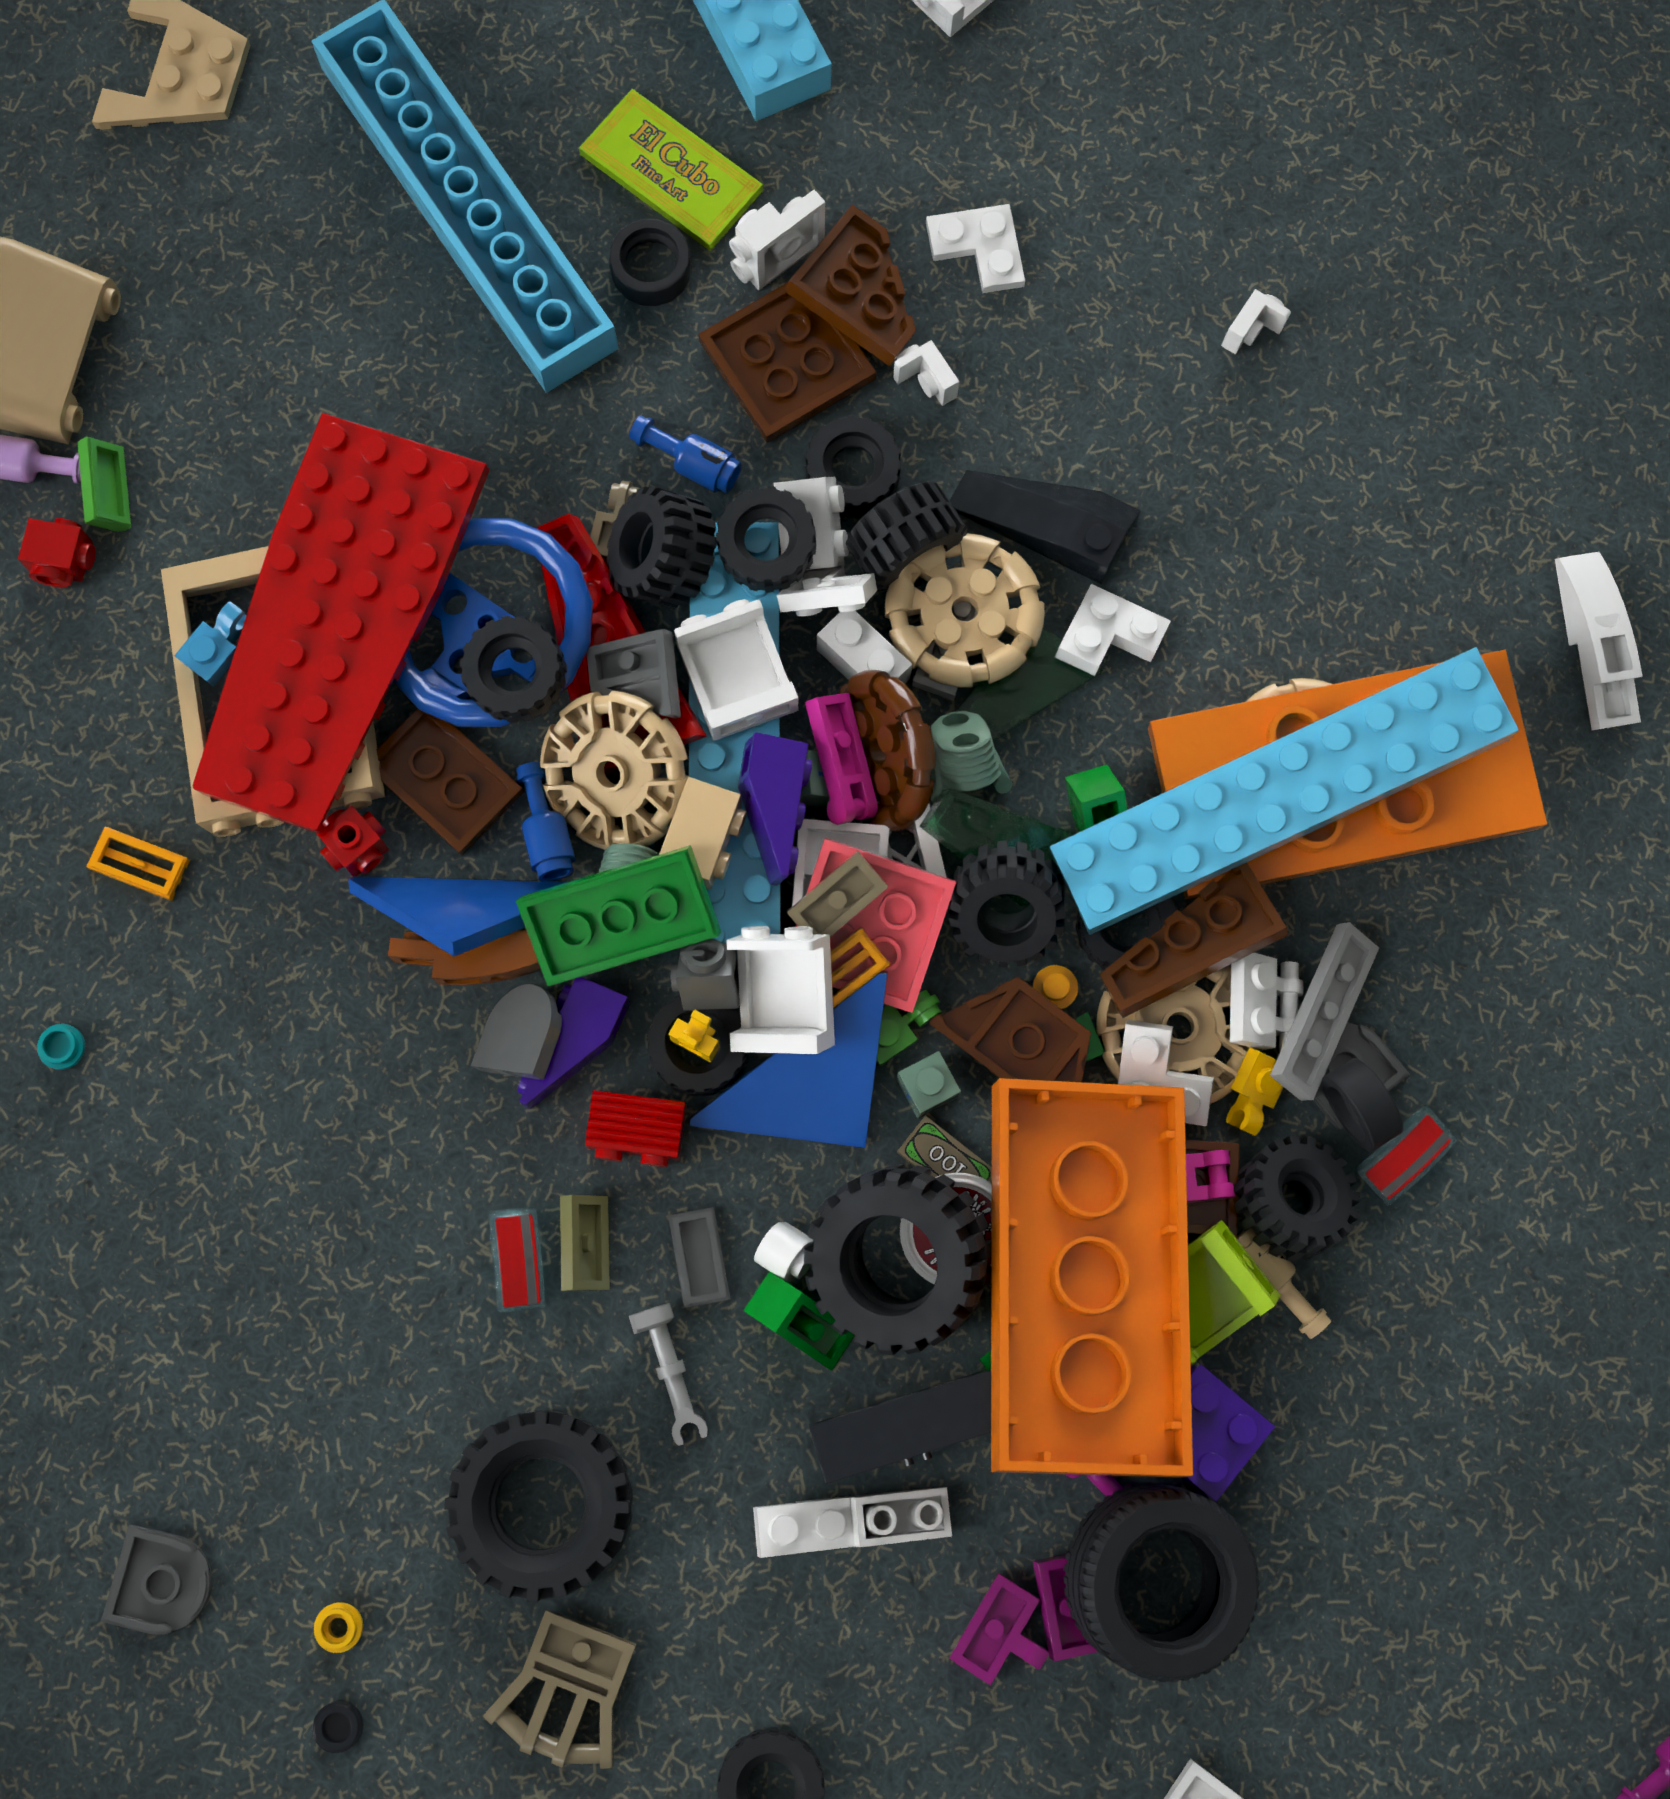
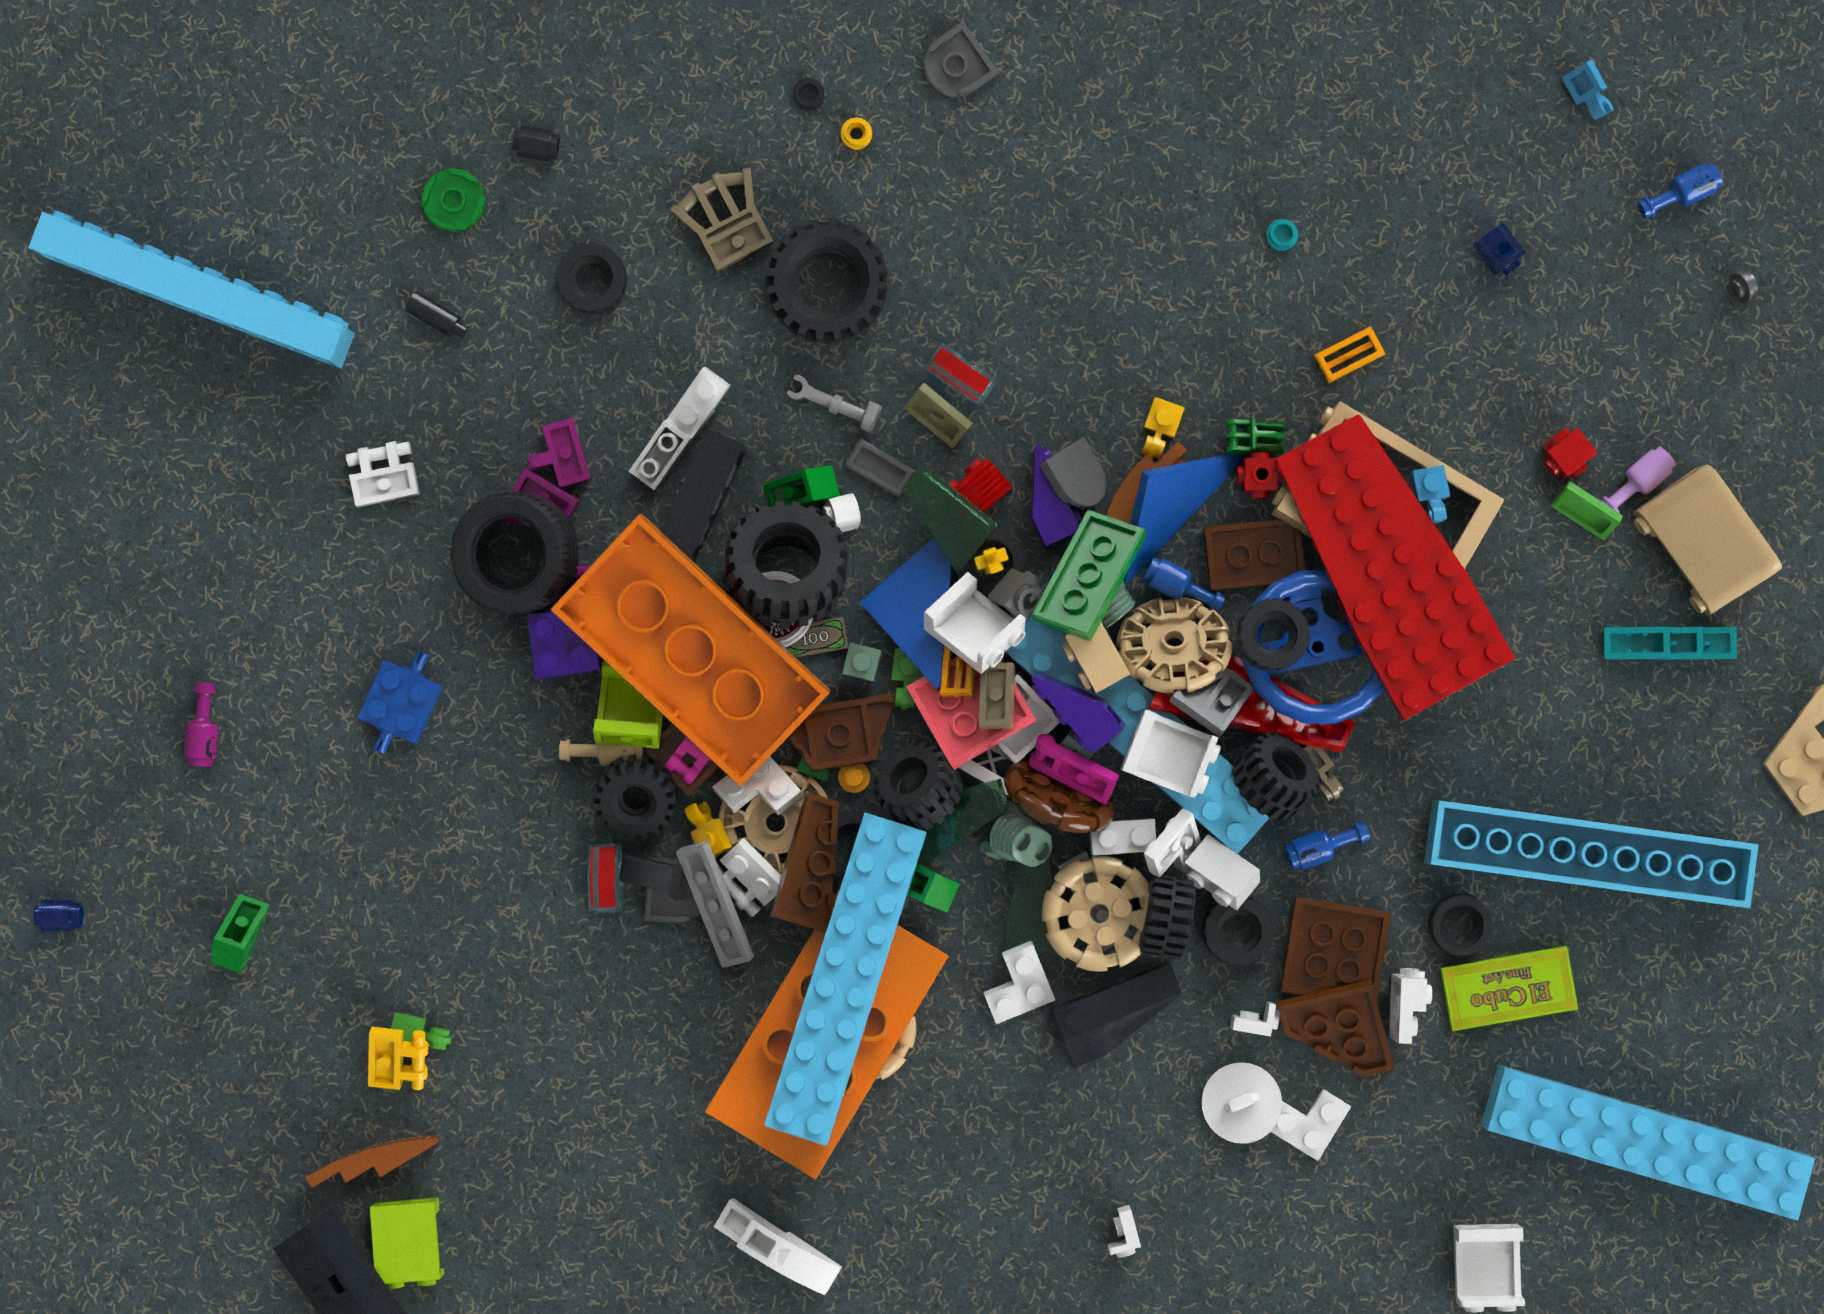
camera: 130 degrees right, 10 degrees up
(176, 295) = (1670, 643): none -> teal slope
(315, 885) = (1257, 437): none -> green arm
(379, 998) = (1162, 419): none -> yellow plate
(685, 1127) = (950, 516): none -> clear green wing
(759, 505) = (1252, 826): black tyre -> none
(1021, 320) = (1242, 1103): none -> white shield
(1434, 1560) = (400, 701): none -> blue plate

